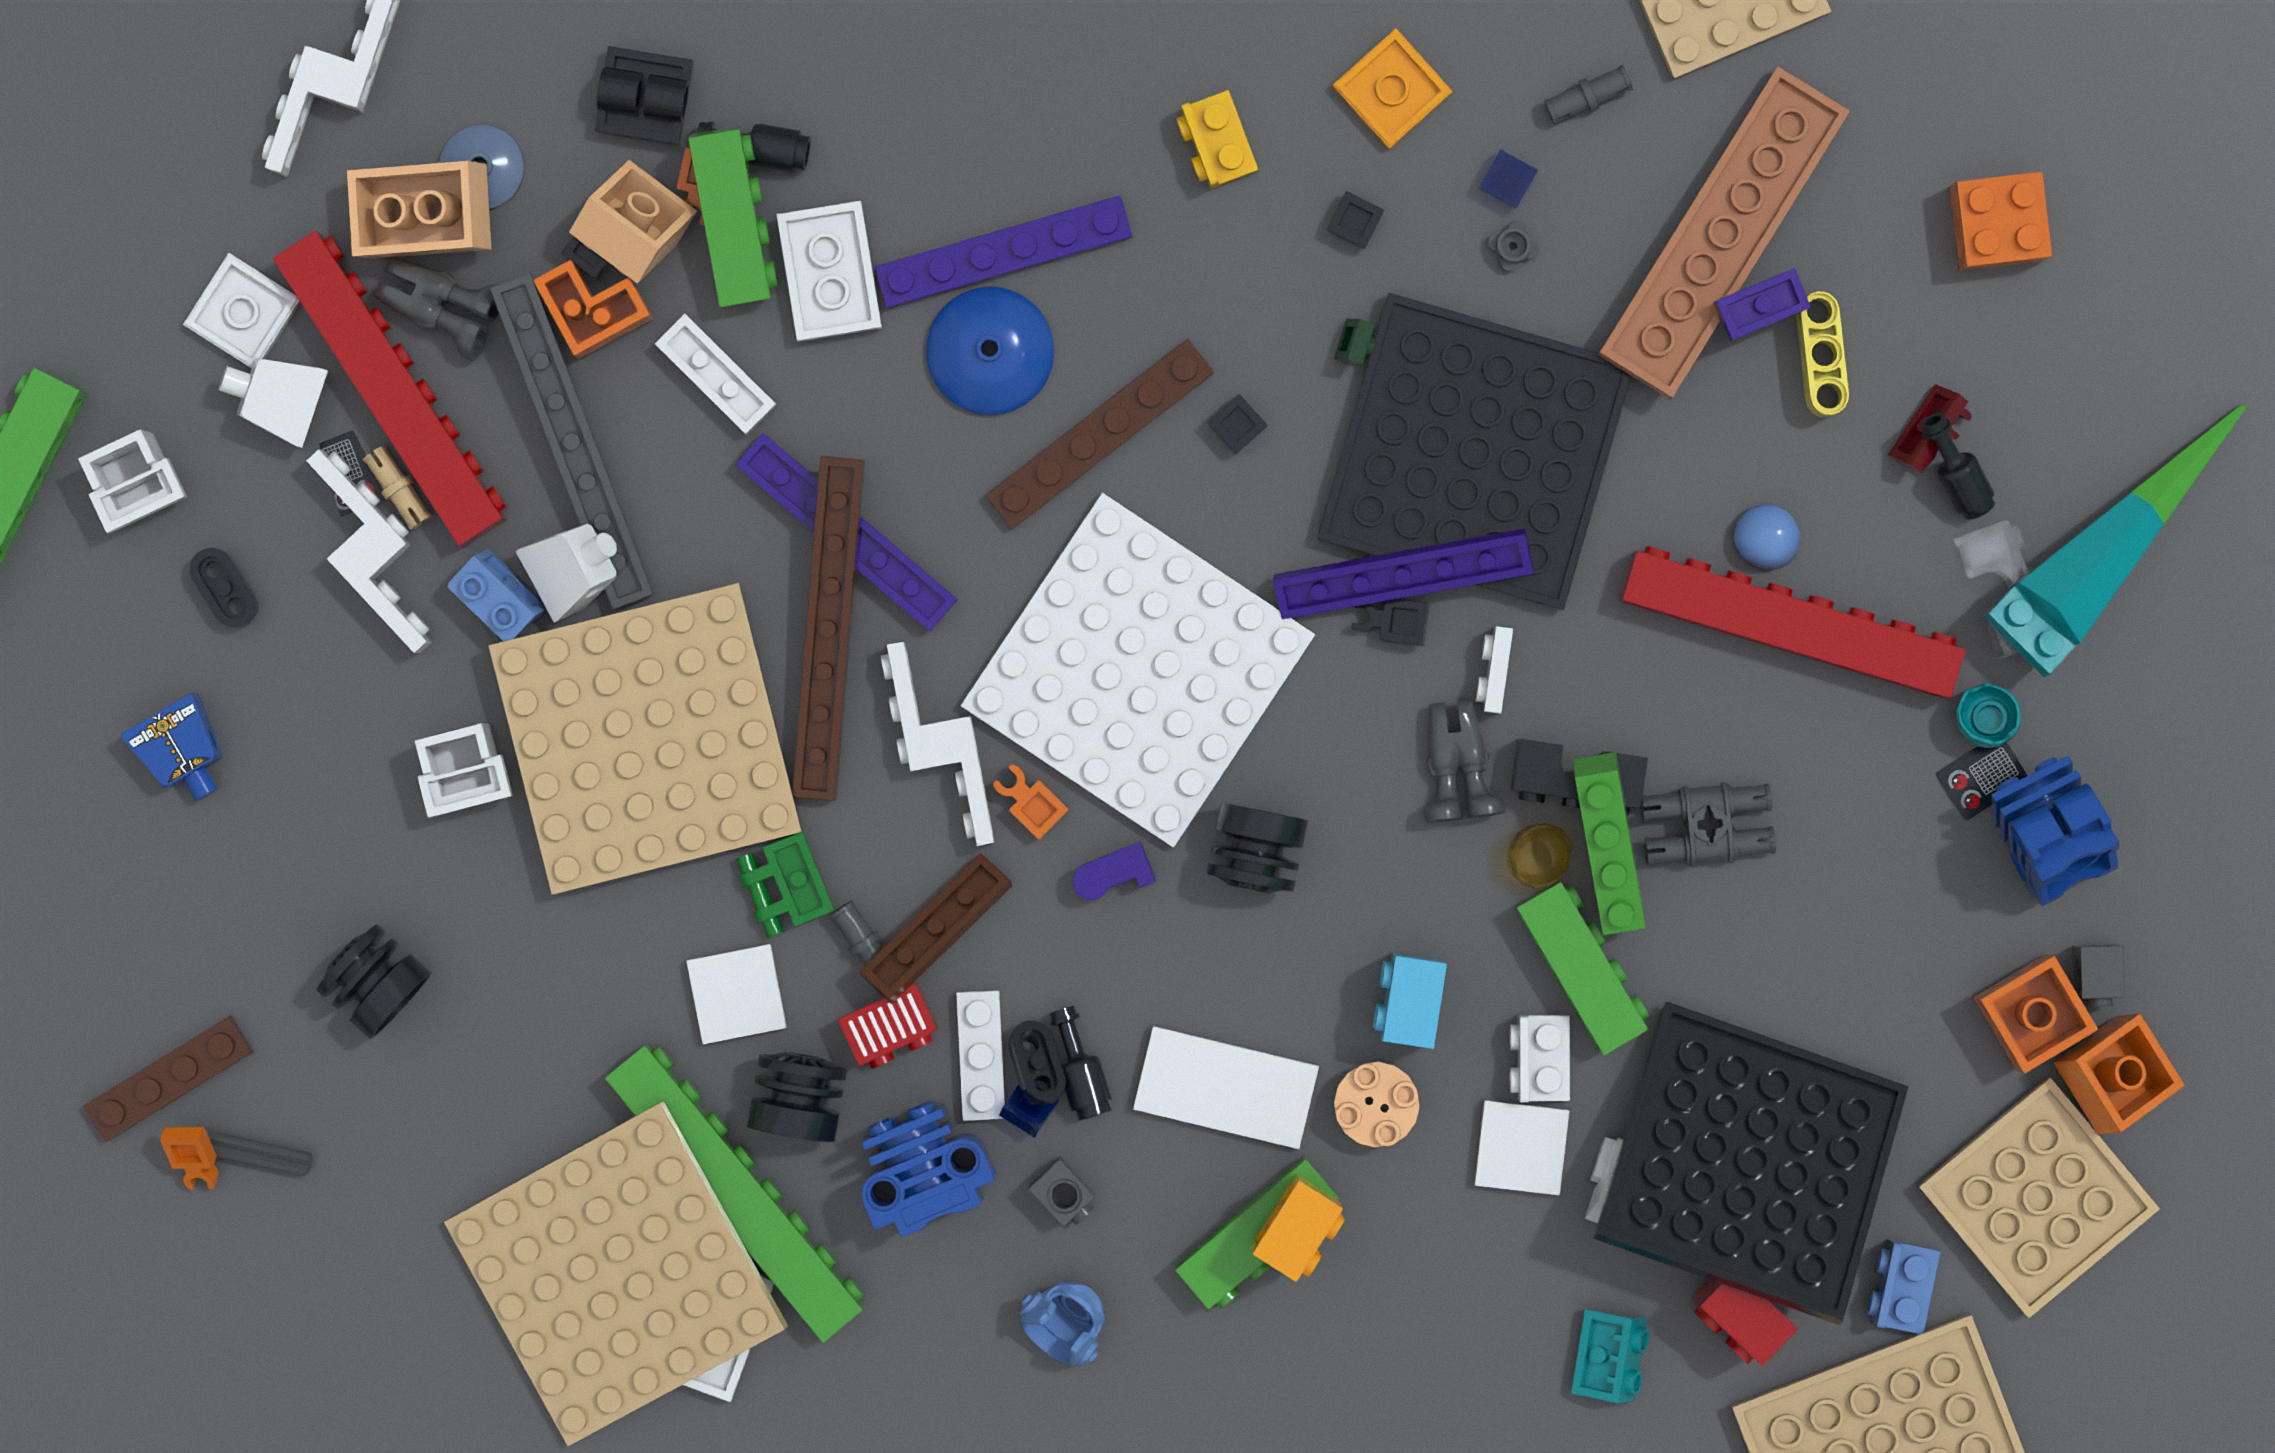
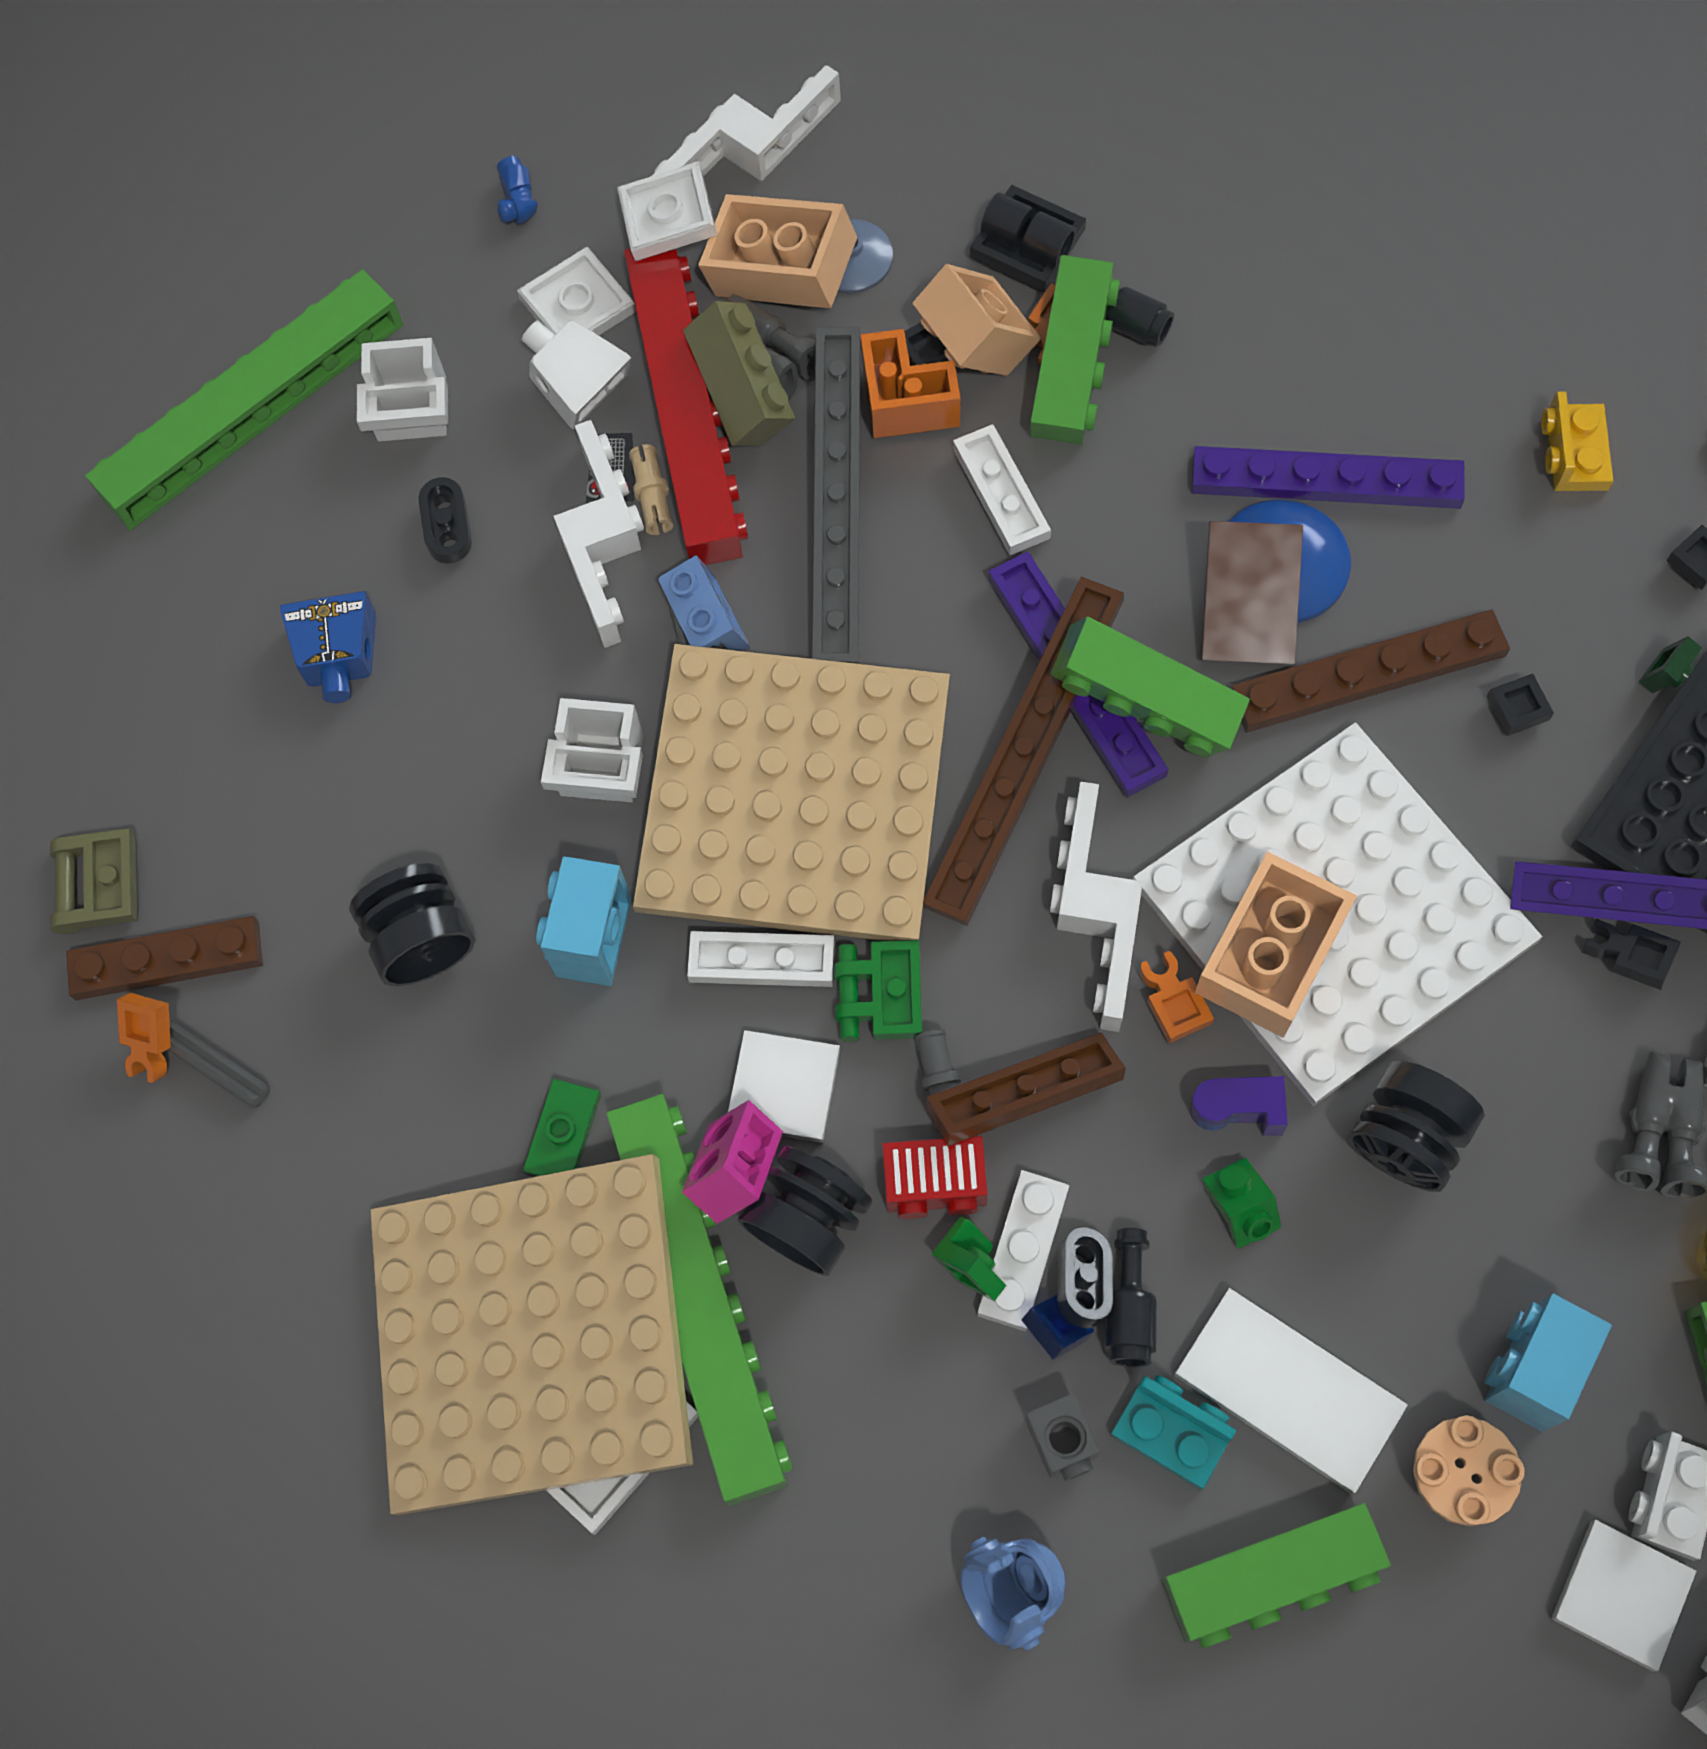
camera: 30 degrees right, 20 degrees down
(86, 1031) = (107, 880): none -> olive plate
(133, 212) = (517, 189): none -> blue arm
(298, 207) = (667, 211): none -> white tile
(435, 355) = (739, 373): none -> olive brick
(517, 924) = (585, 920): none -> medium azure brick
(570, 569) = (786, 604): white torso -> none
(571, 1100) = (562, 1129): none -> green plate
(675, 894) = (761, 959): none -> white plate
(724, 1081) = (732, 1162): none -> dark pink brick
(829, 271) = (1148, 436): white plate -> none
(915, 540) = (1149, 687): none -> bright green brick
(922, 1170) = (914, 1329): blue piece -> none
(935, 1081) = (966, 1258): none -> green bracket
(973, 406) = (1251, 592): none -> tile
(1096, 738) = (1275, 944): none -> light nougat brick
(1141, 952) = (1243, 1202): none -> green bracket
(1145, 1154) = (1174, 1431): none -> teal bracket
(1298, 1228) = (1339, 1574): light orange brick -> none

